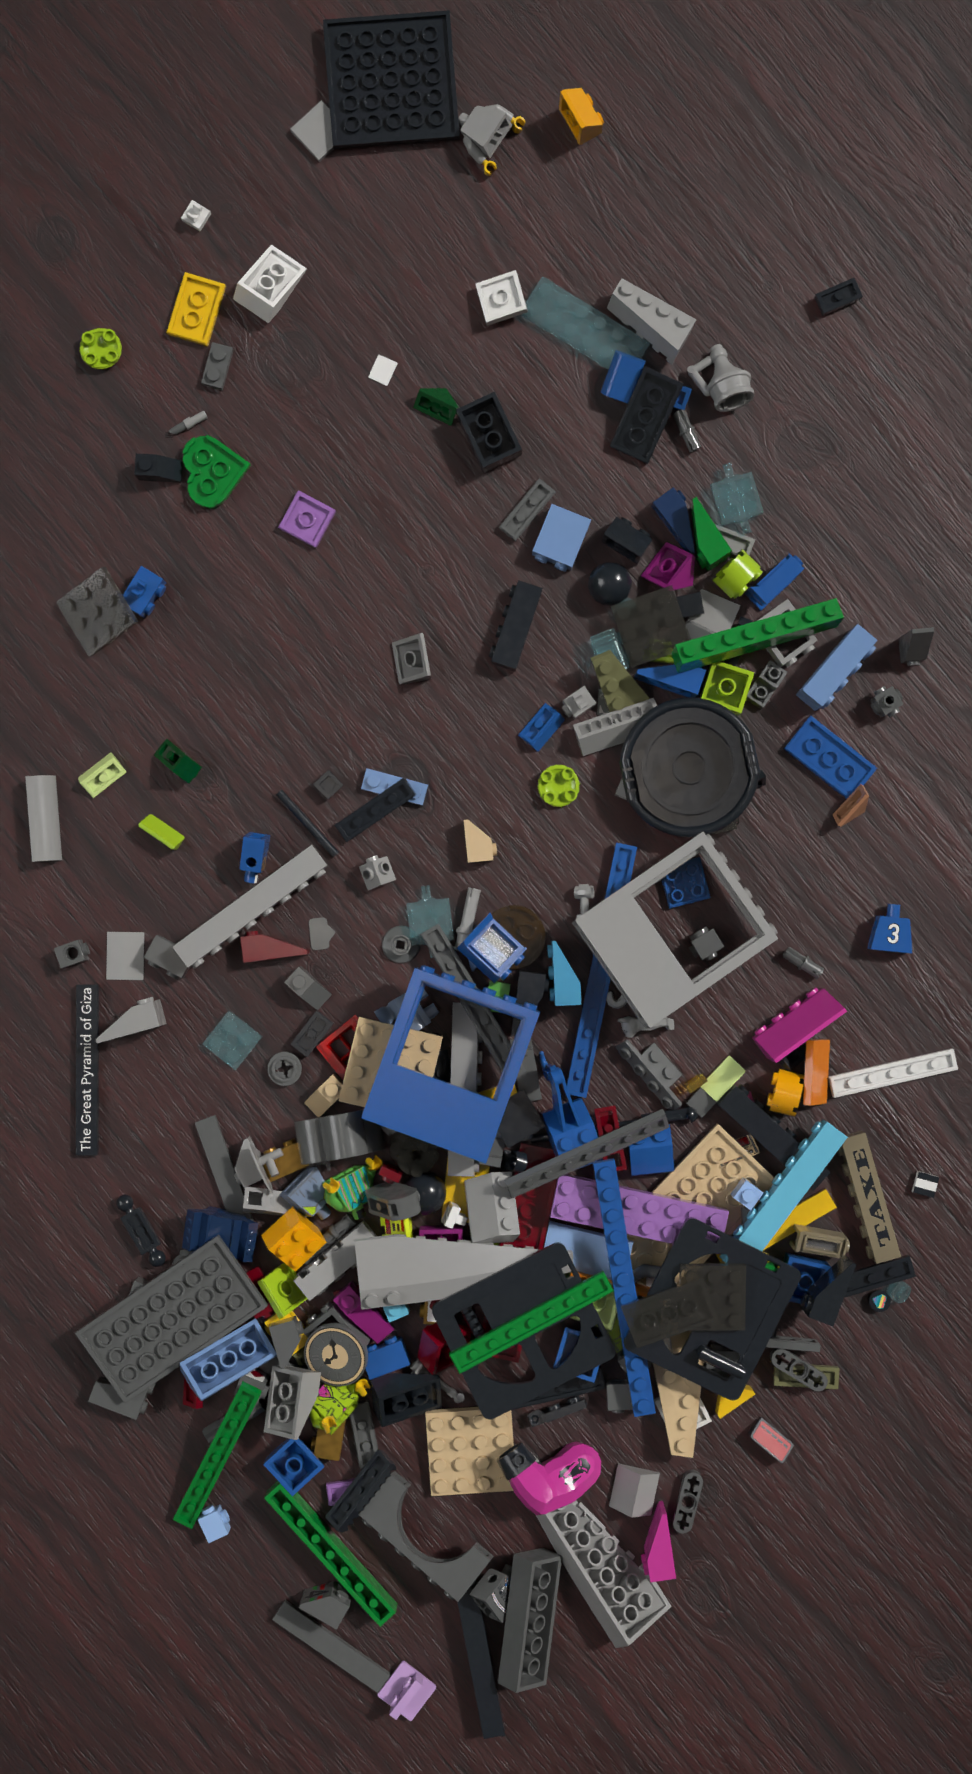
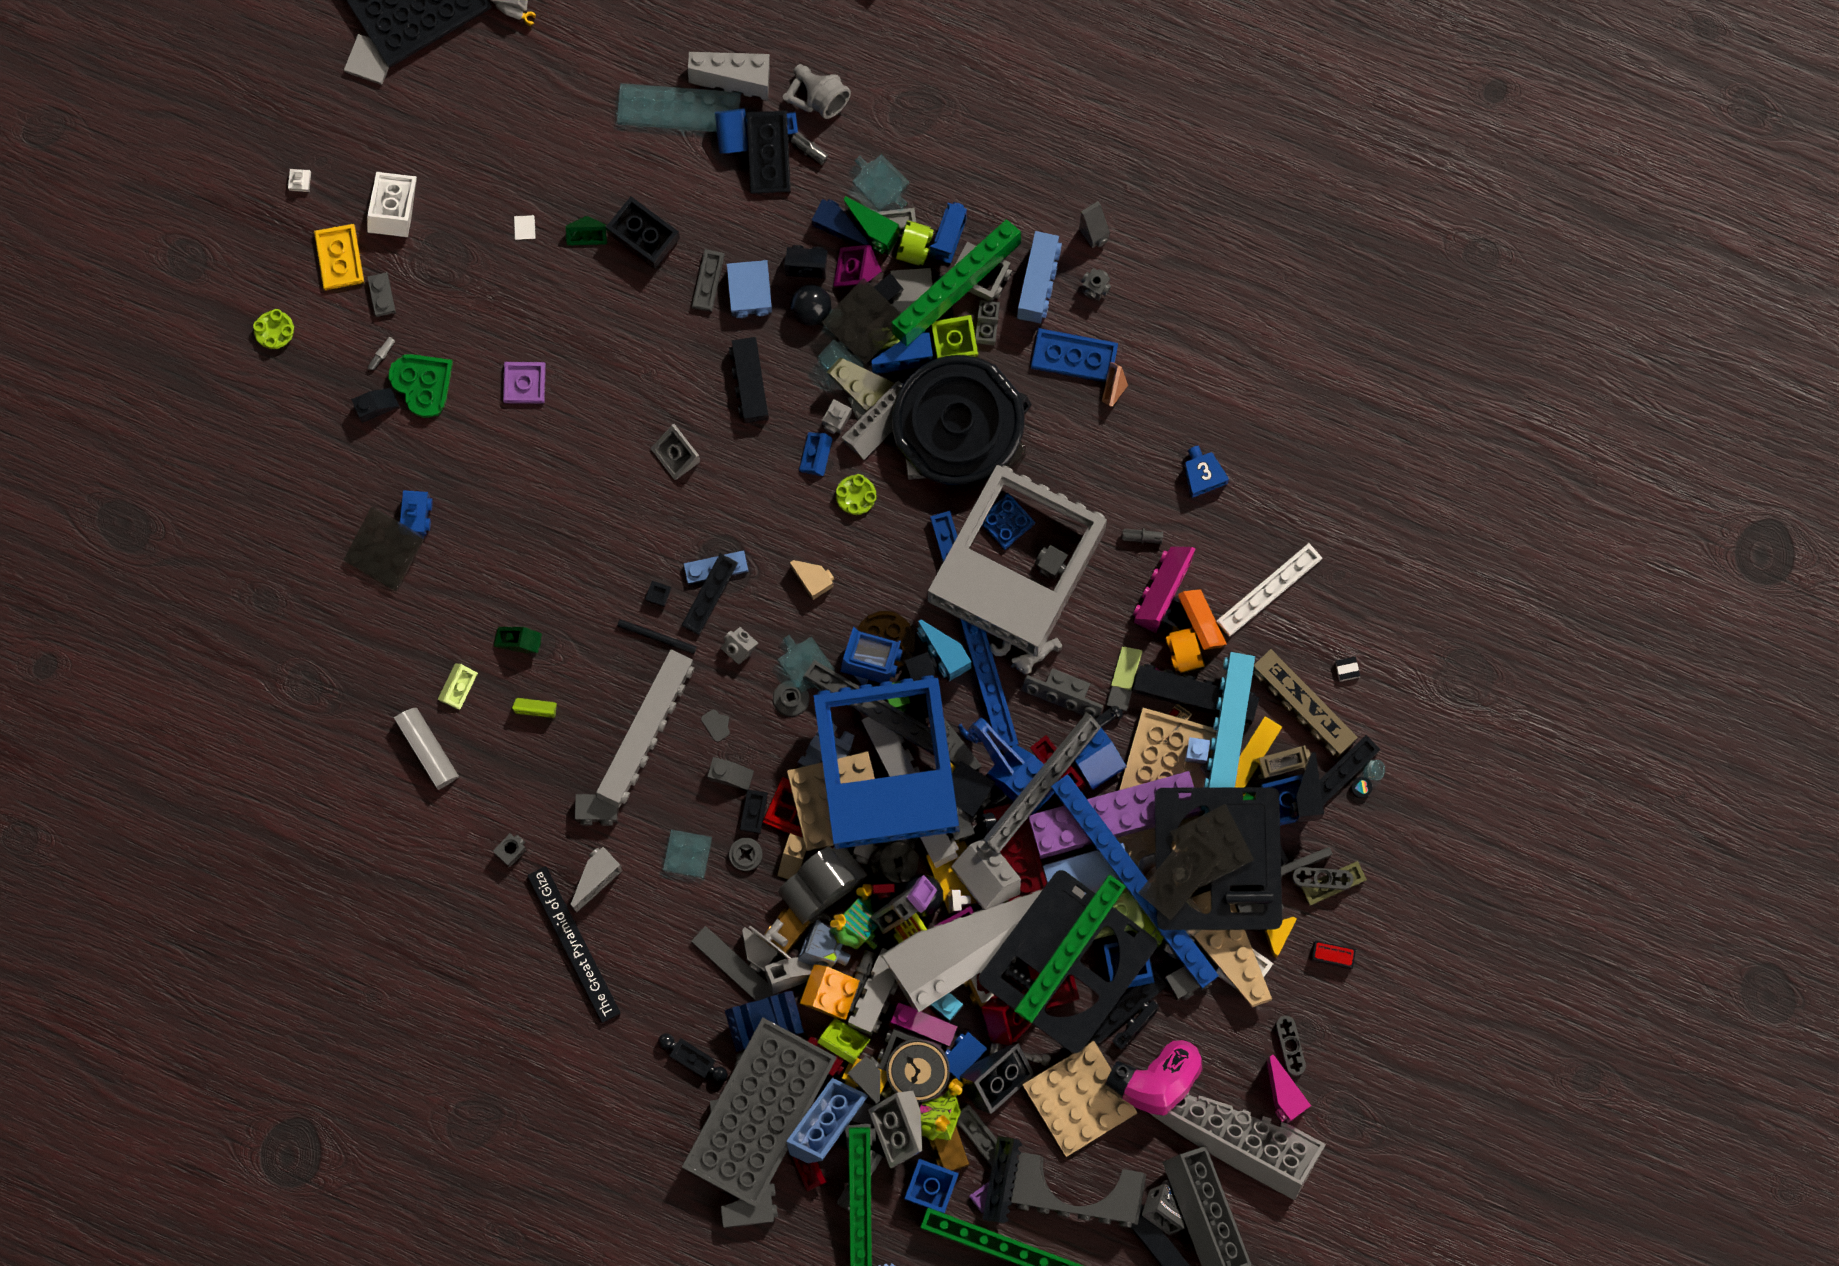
camera: 35 degrees left, 10 degrees down
(125, 956) = (556, 830): light grey sticker -> none
(254, 846) = (624, 675): blue torso -> none
(265, 947) = (676, 758): dark red slope -> none
(420, 1202) = (921, 893): none -> medium lavender tile
(468, 916) = (836, 643): light grey pin -> none
(501, 297) = (595, 118): white plate -> none
(583, 893) = (925, 573): light grey bar -> none
(634, 1490) = (1239, 1060): light grey slope -> none
(695, 1083) = (1105, 683): clear yellow tile -> none

